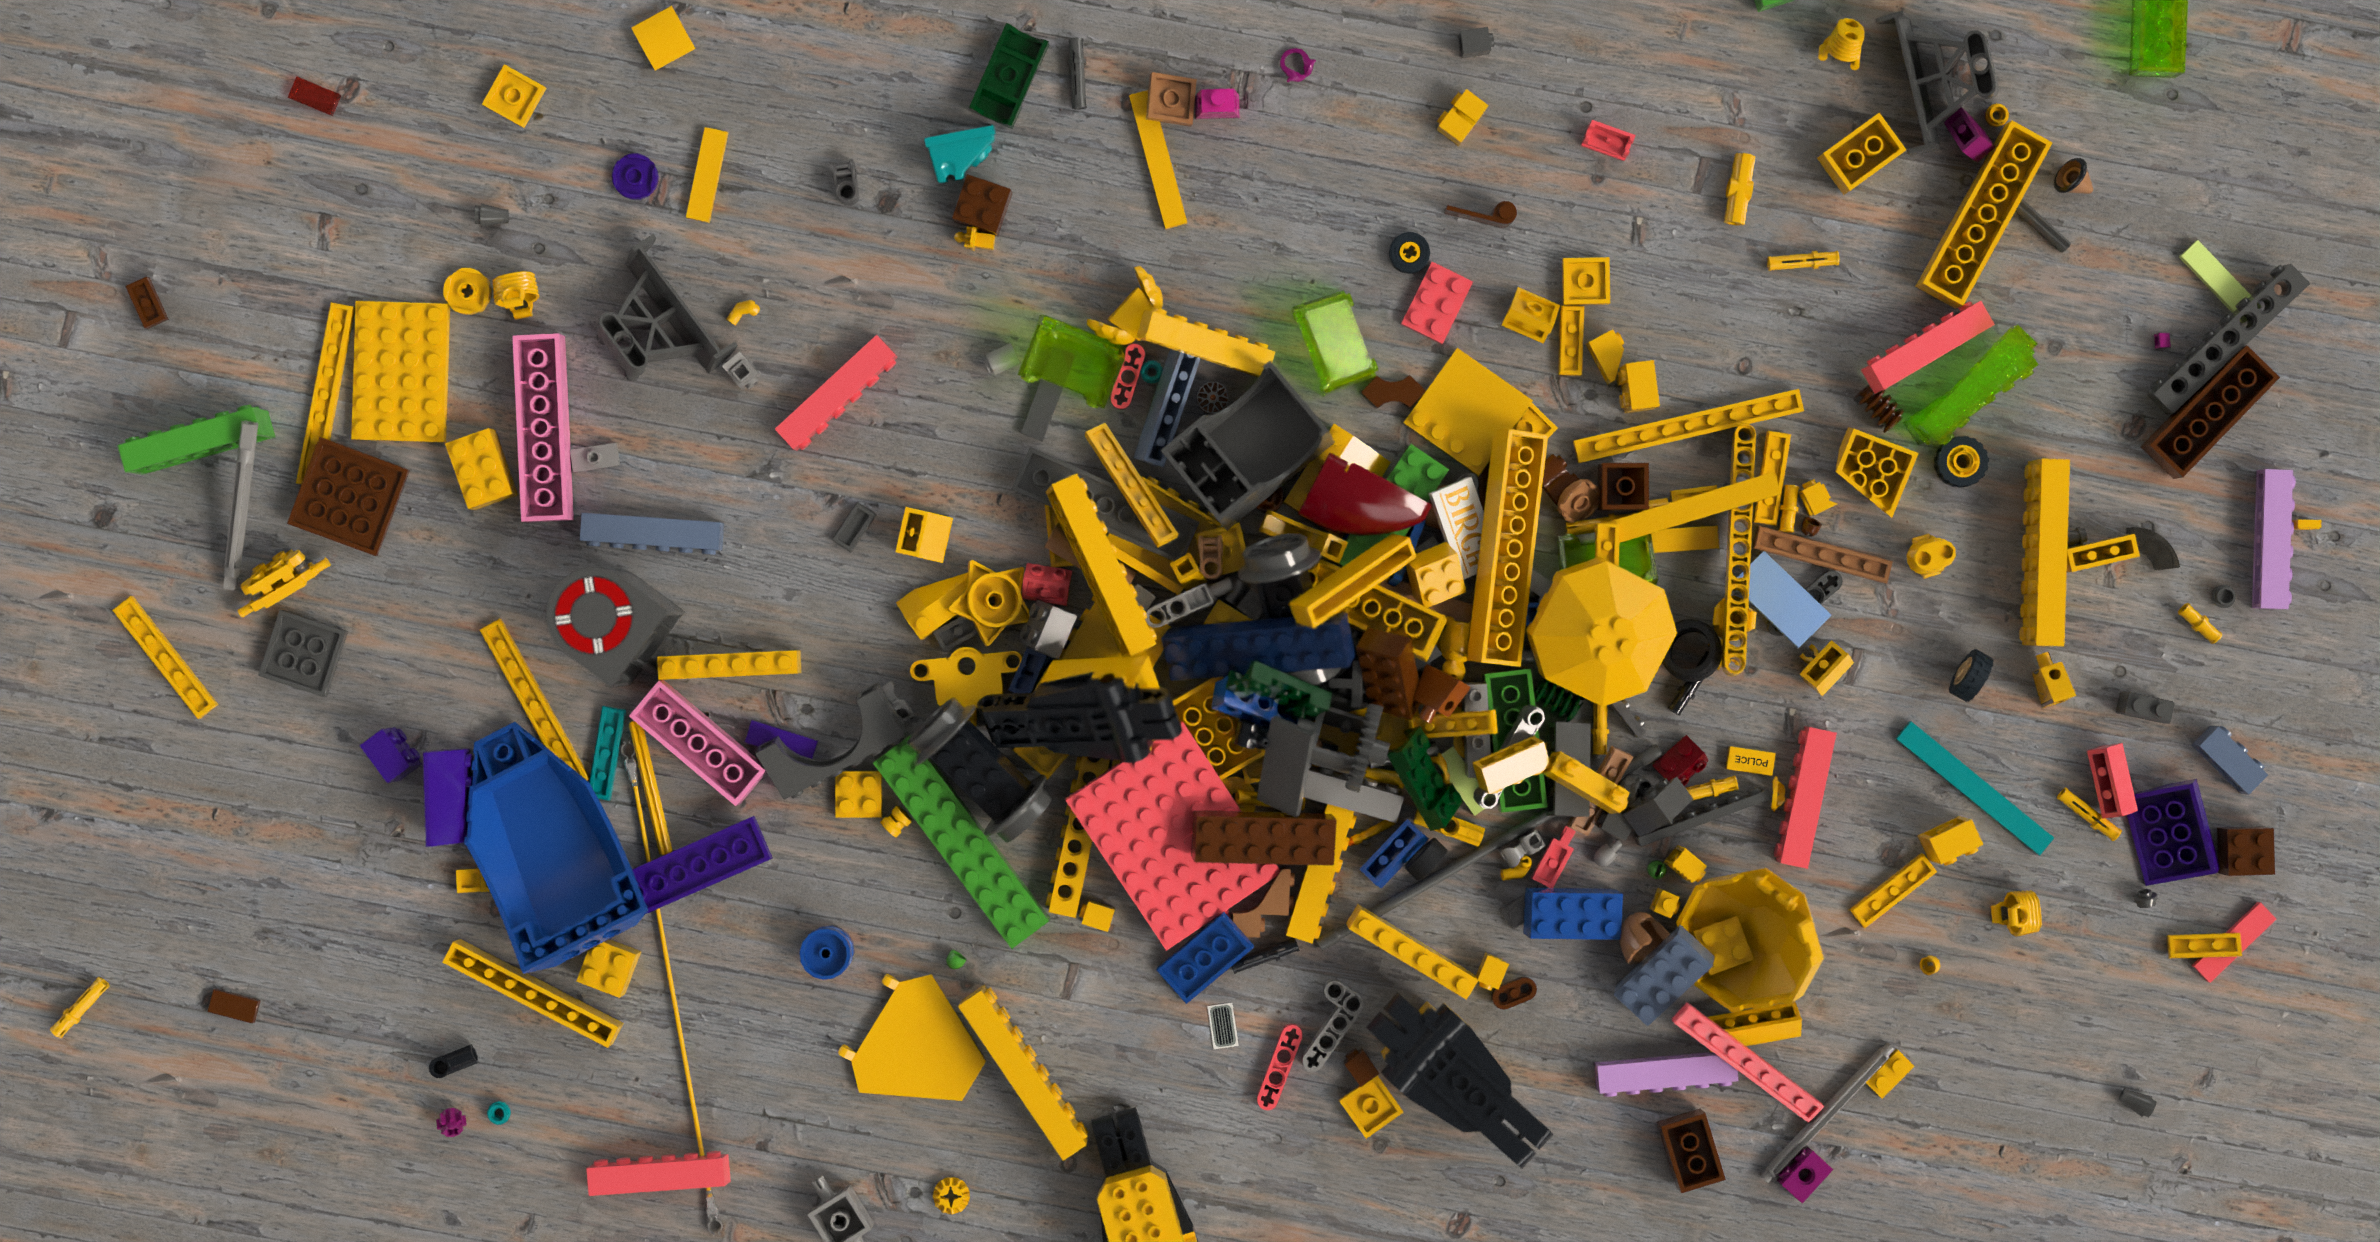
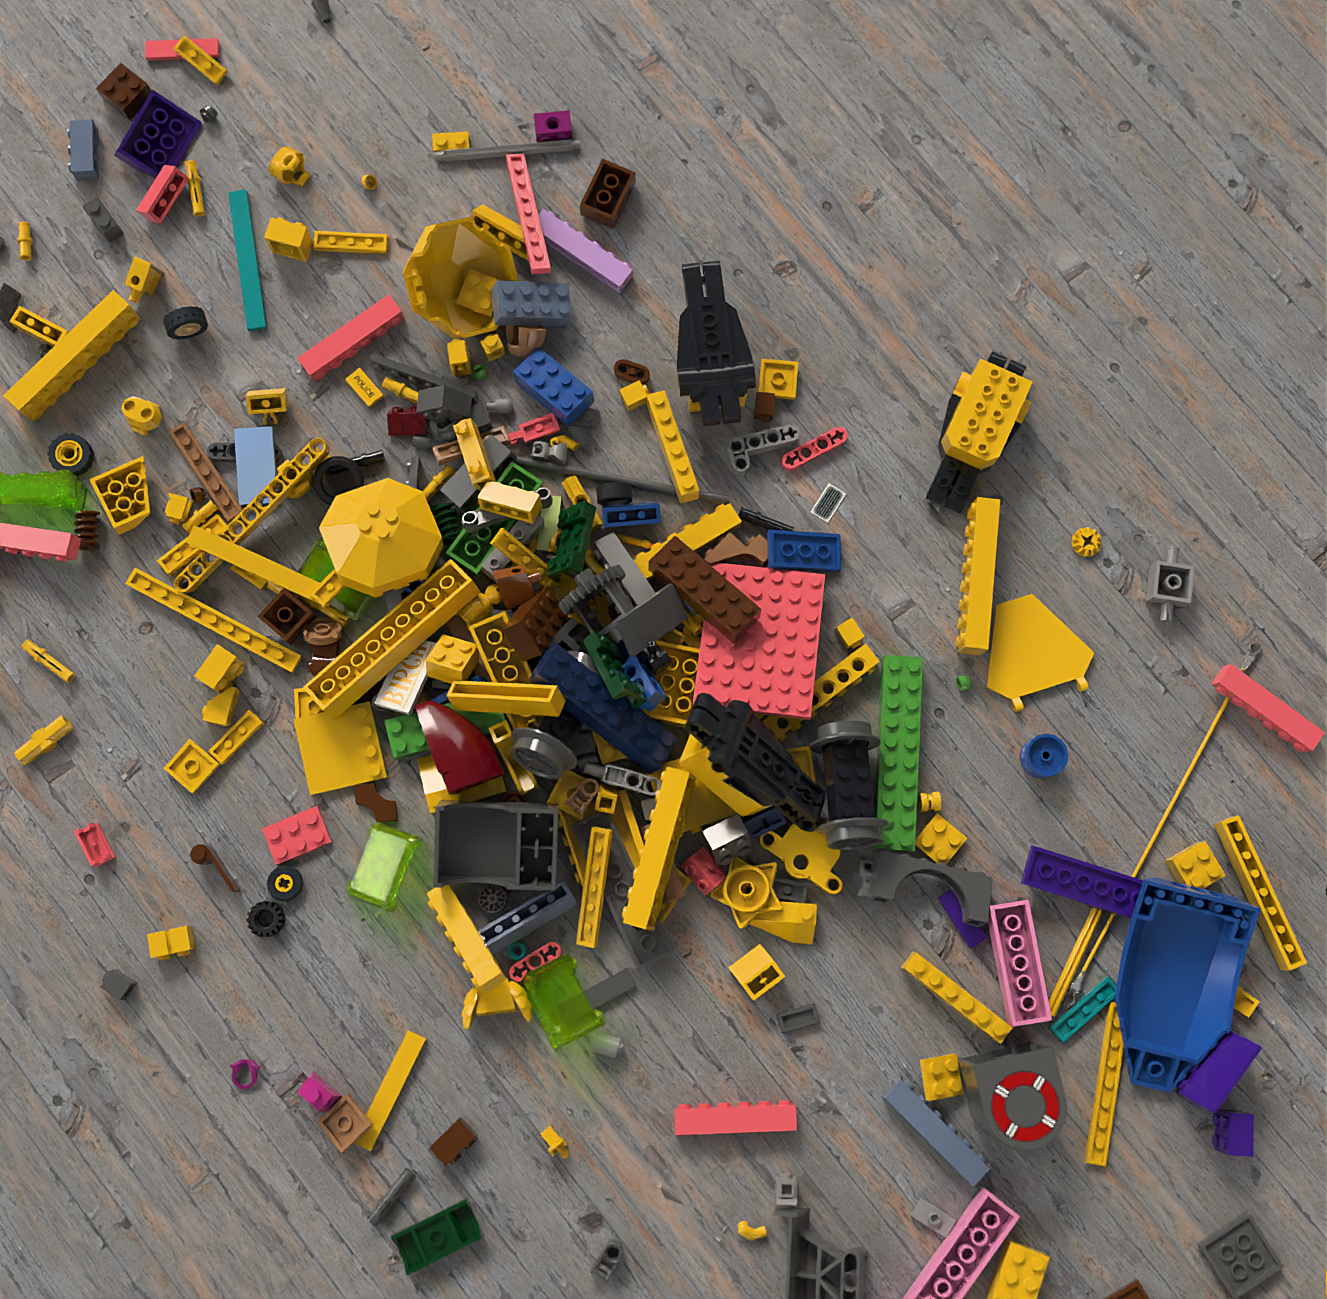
camera: 145 degrees left, 10 degrees down
(686, 583) = (941, 1077): none -> yellow plate
(959, 151) = (514, 1212): teal piece -> none
(982, 205) = (530, 1162): reddish brown brick -> none
(1064, 164) = (453, 1141): none -> reddish brown brick
(1397, 194) = (253, 919): none -> black tyre
(1531, 315) = (245, 774): yellow bracket -> none
(1685, 539) = (278, 551): yellow tile -> none
(1779, 788) = (368, 350): yellow piece -> none

